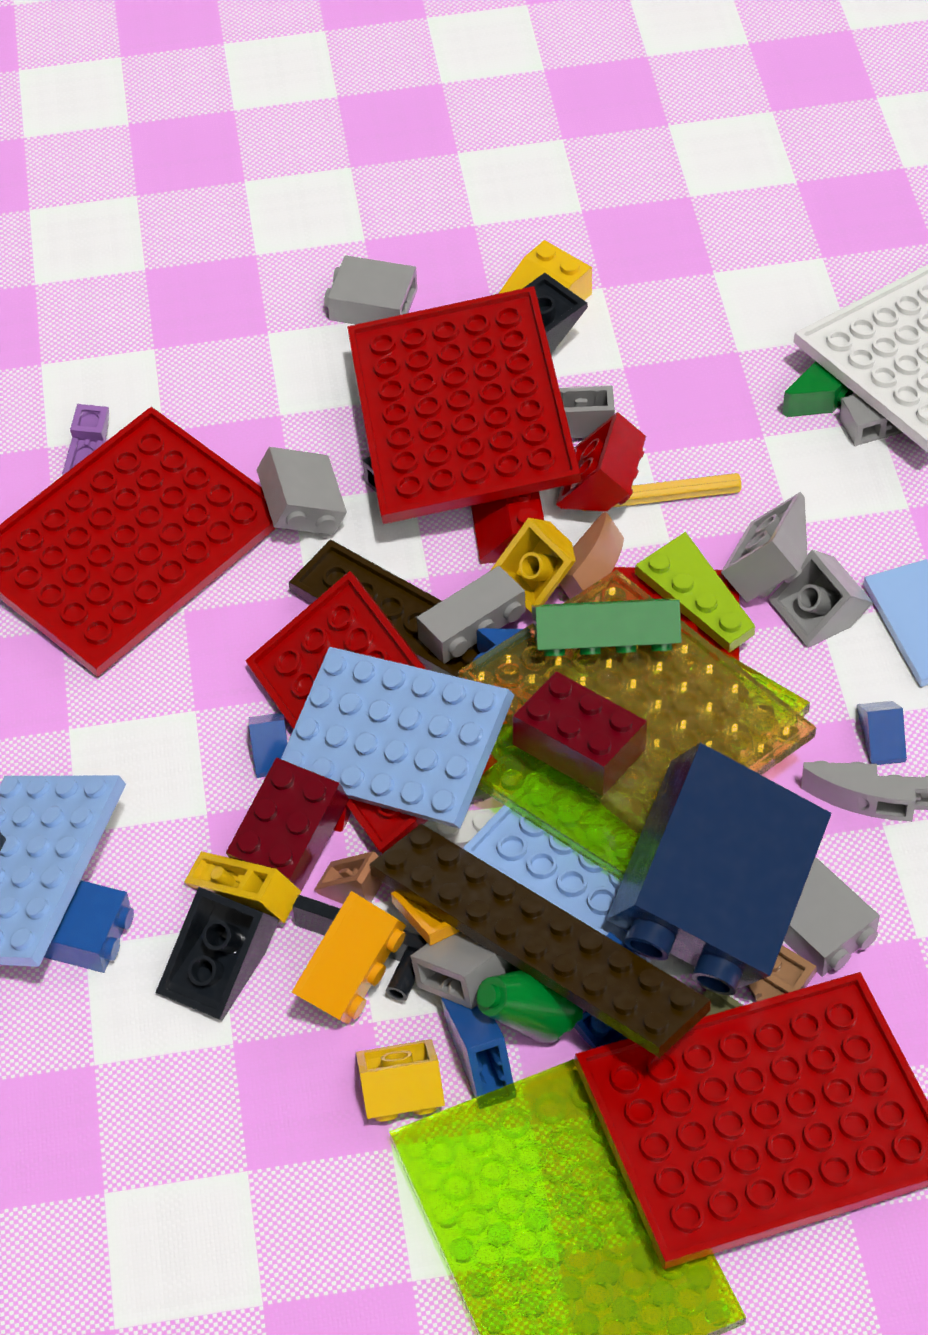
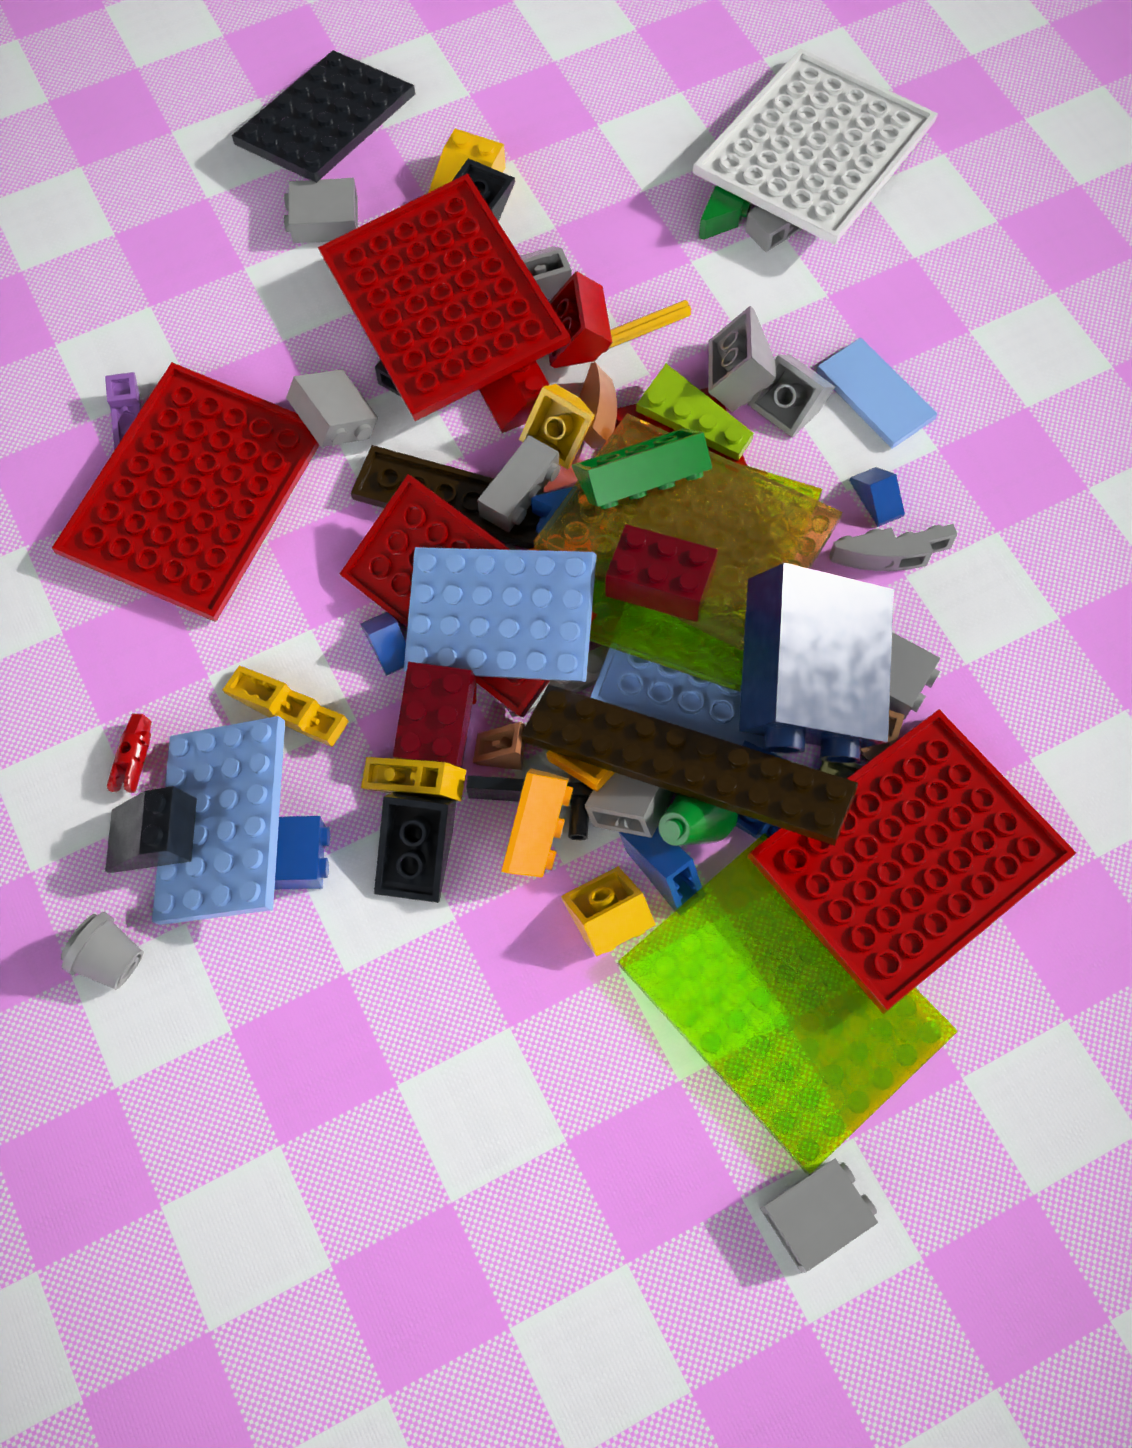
camera: 20 degrees left, 15 degrees up
(144, 783) = (277, 699): none -> yellow slope
(410, 198) = (324, 115): none -> black plate

